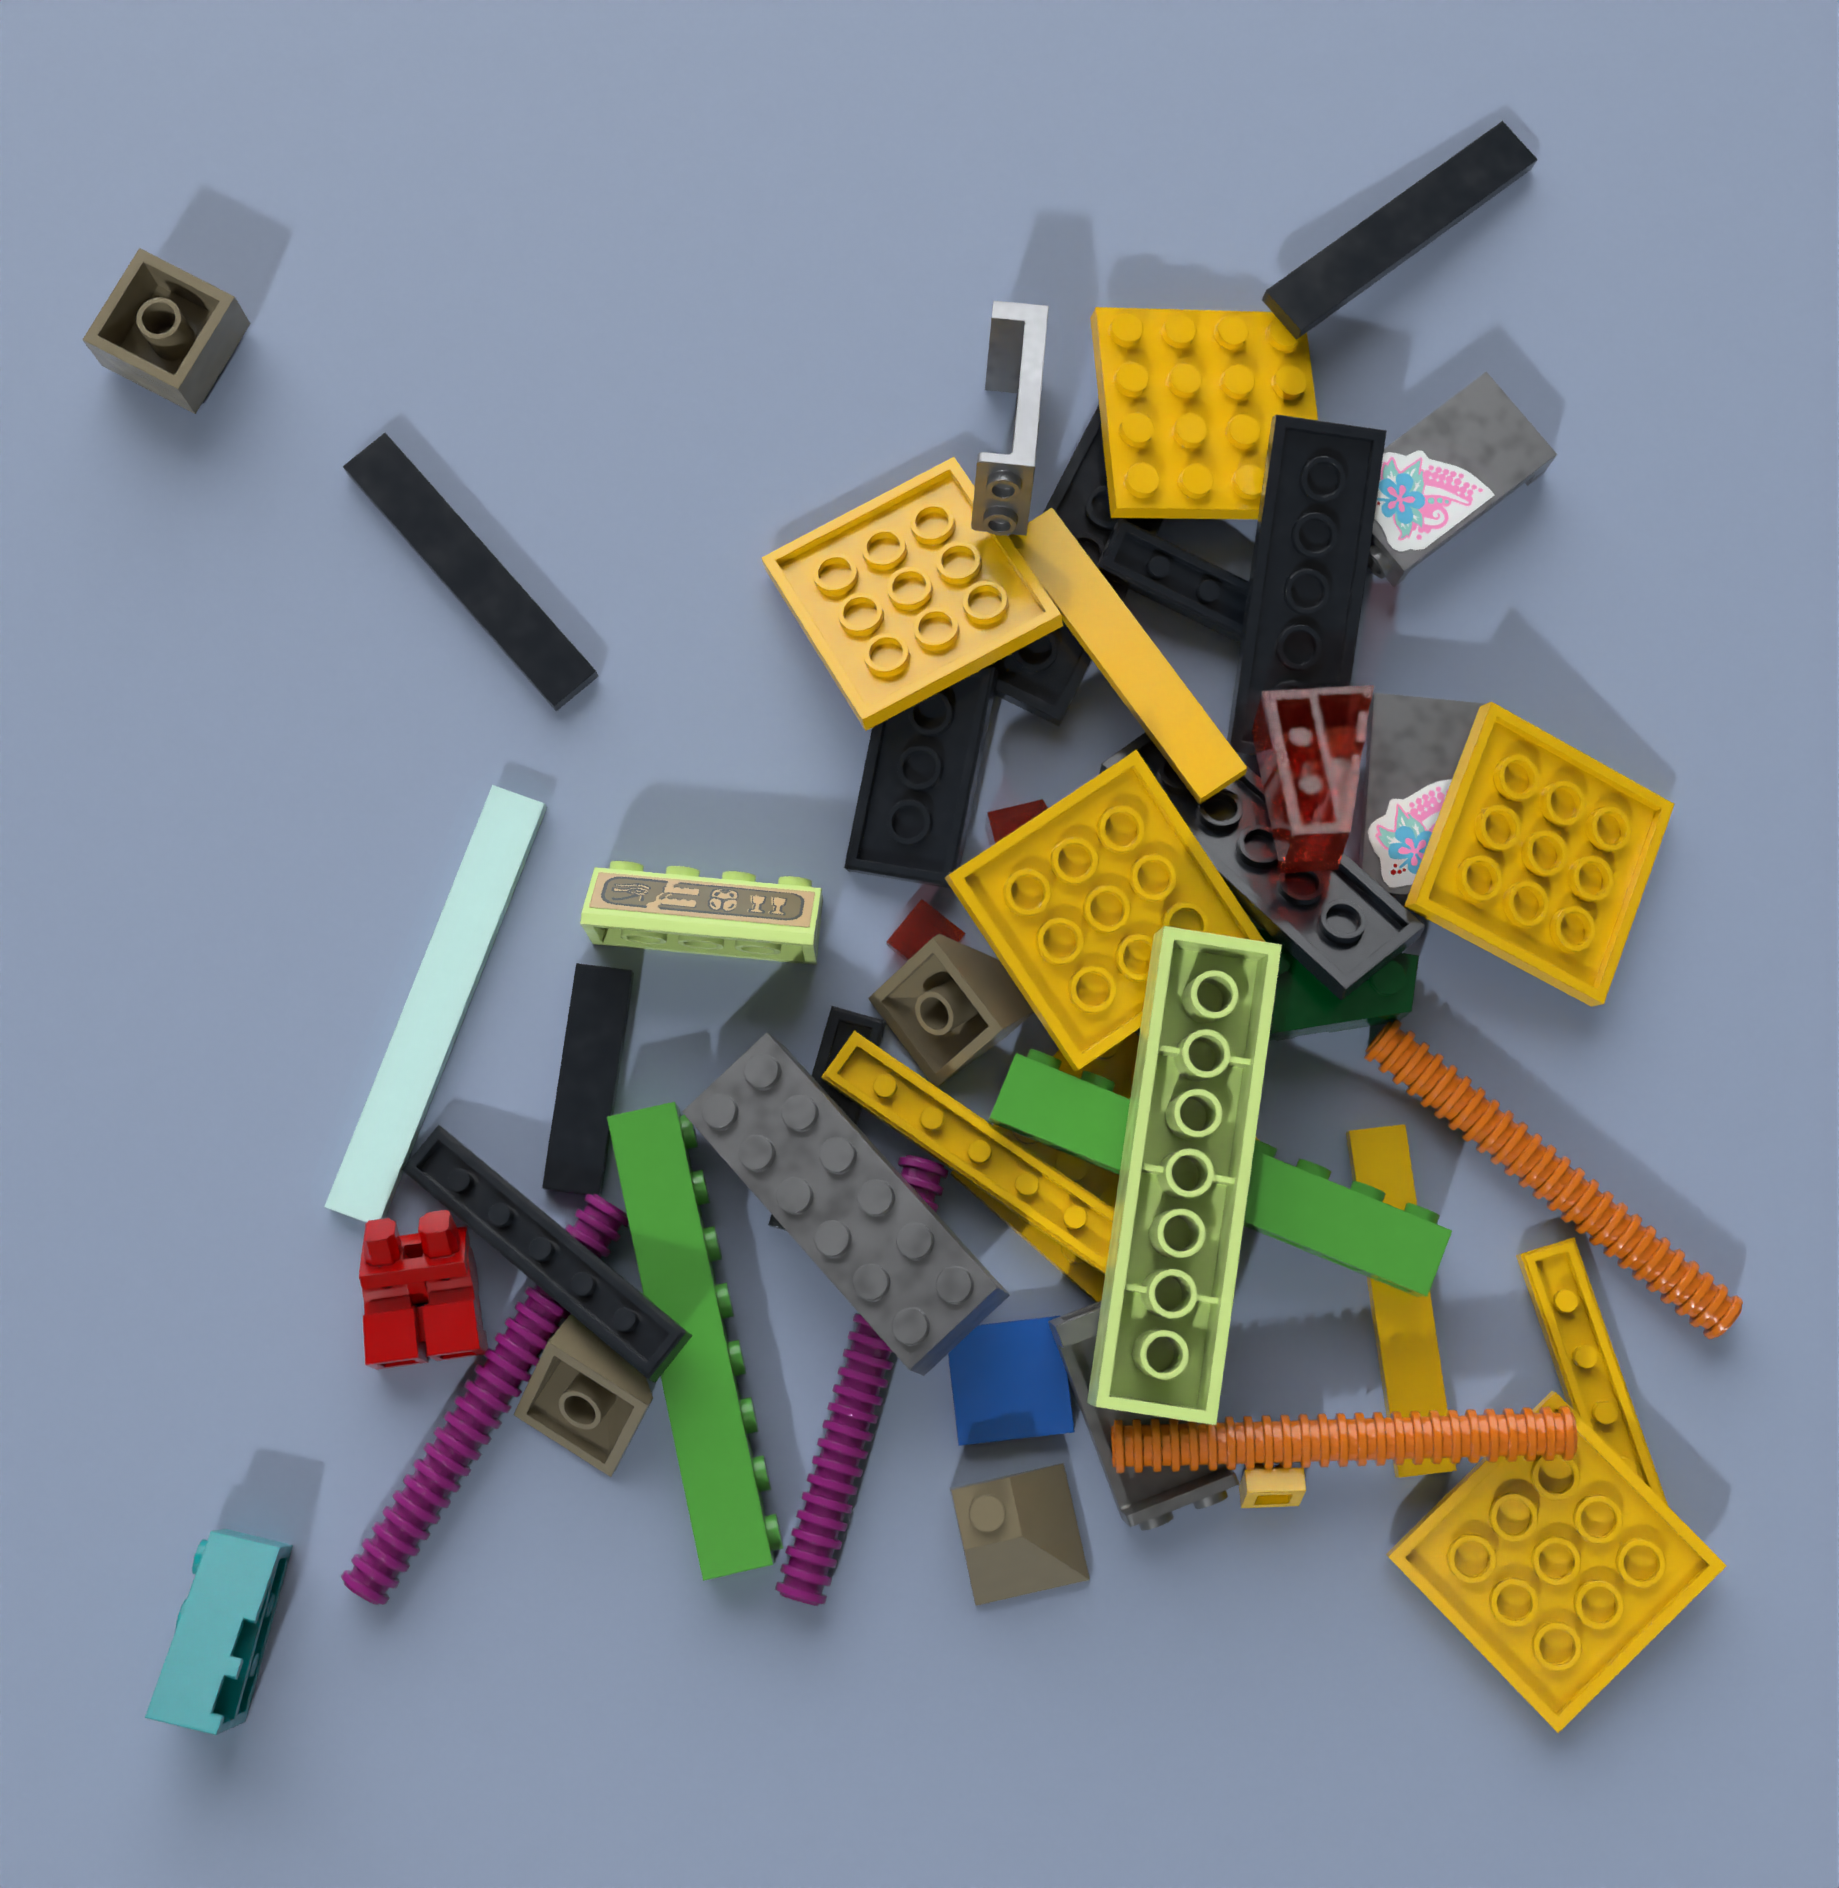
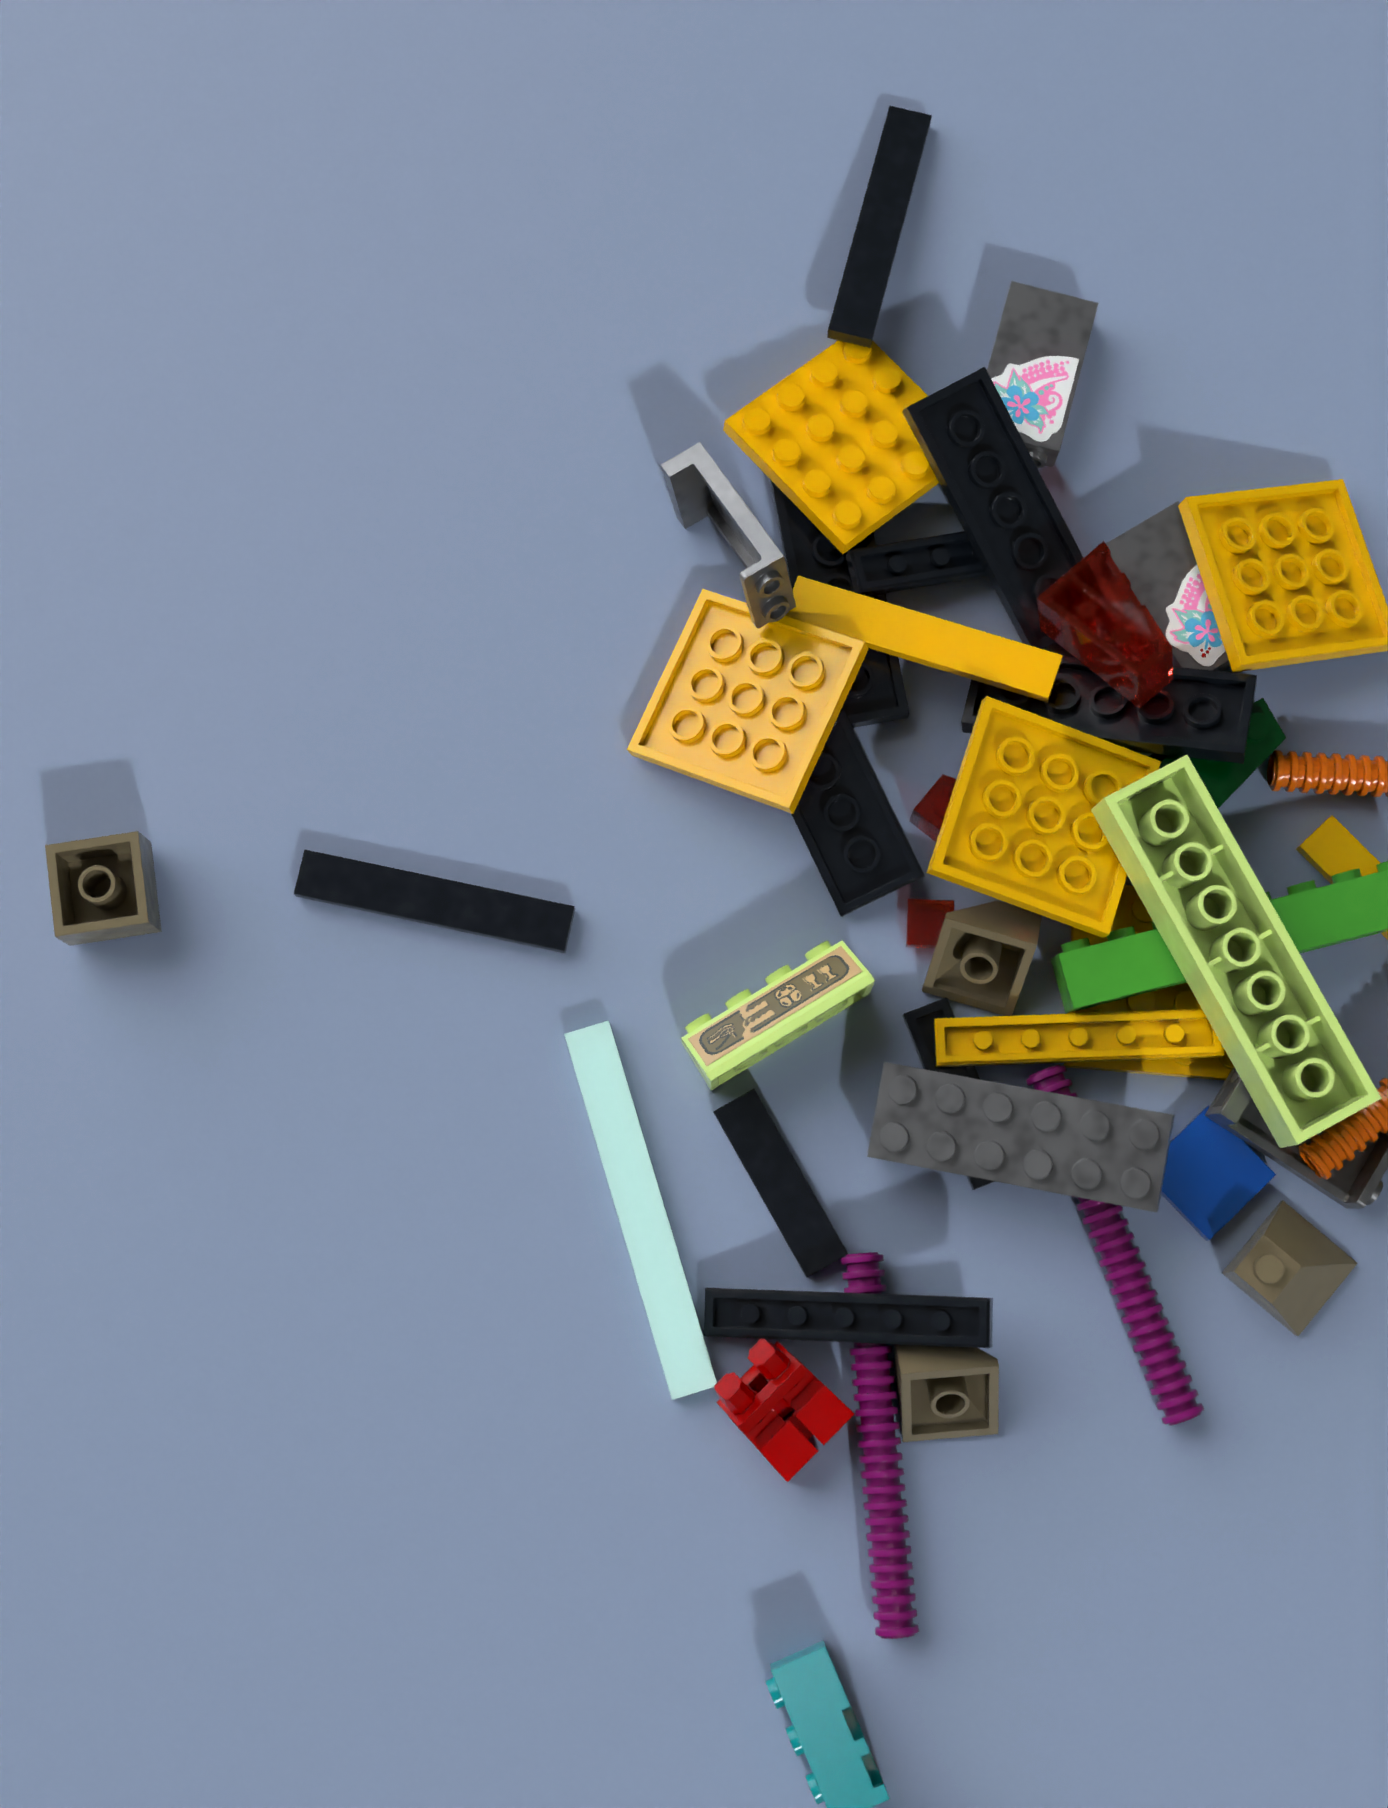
camera: 30 degrees left, 0 degrees up
(701, 1382) = (1021, 1333): bright green brick -> none

